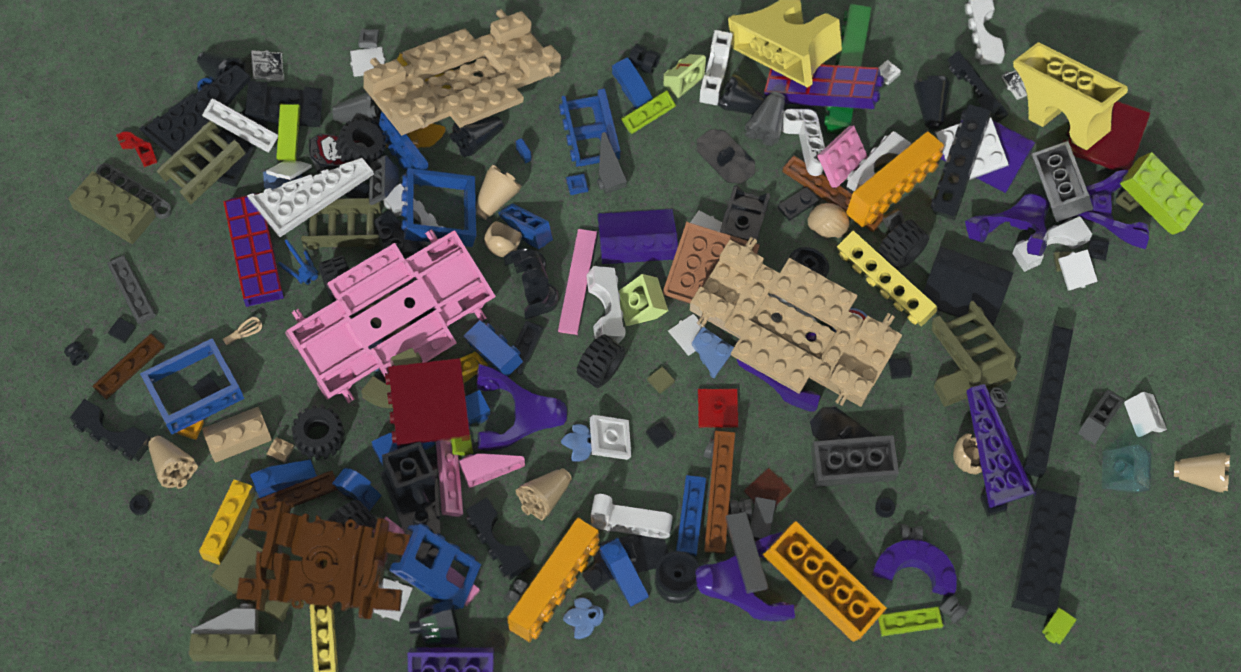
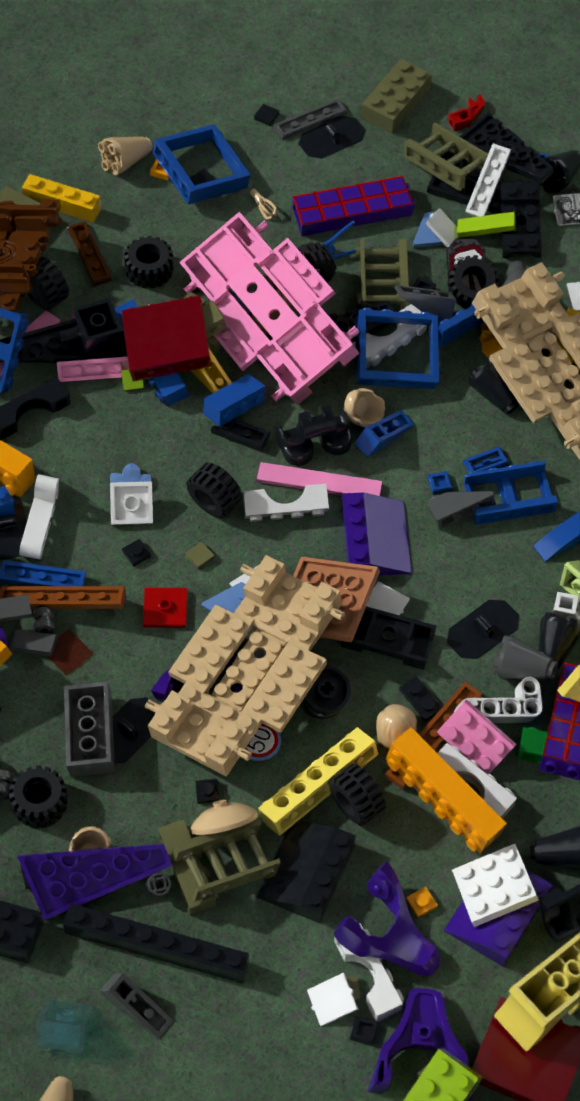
camera: 90 degrees right, 5 degrees down
(76, 353) = (240, 81): black wheel -> none
(128, 366) = (228, 122): reddish brown tile -> none
(129, 184) = (421, 107): dark grey beam -> none
(131, 442) = (171, 96): black arch -> none
(139, 505) = (87, 138): black tile -> none
(155, 271) = (331, 137): none -> black shield
(236, 434) = (152, 202): tan slope -> none
(280, 450) = (134, 233): tan tile -> none
(282, 476) = (105, 237): blue slope -> none
(304, 197) = (406, 236): white wing -> none
(356, 486) = (89, 290): blue brick -> none
(486, 467) = (105, 396): bright pink slope -> none
(495, 192) = (423, 403): tan cone -> none
(523, 150) = (477, 430): blue tile -> none
(530, 410) = (166, 437): dark purple animal -> none
(543, 493) = (73, 444): tan cone -> none
(560, 160) = (504, 462): none -> blue tile
(642, 300) = (293, 539): yellowish green slope -> none
(648, 112) = (535, 551): lime tile -> none
(885, 507) = (38, 759): black plate -> none
(893, 219) = (397, 797): dark grey tile -> none
(918, 515) = (42, 812): none -> black tyre
(938, 345) = (223, 817): none -> tan dish
(972, 115) = (469, 864): black brick -> none
(984, 206) = (421, 902): none -> light orange plate
(1062, 181) = (448, 982): flat silver brick -> none
(1144, 414) = (136, 1059): white panel -> none

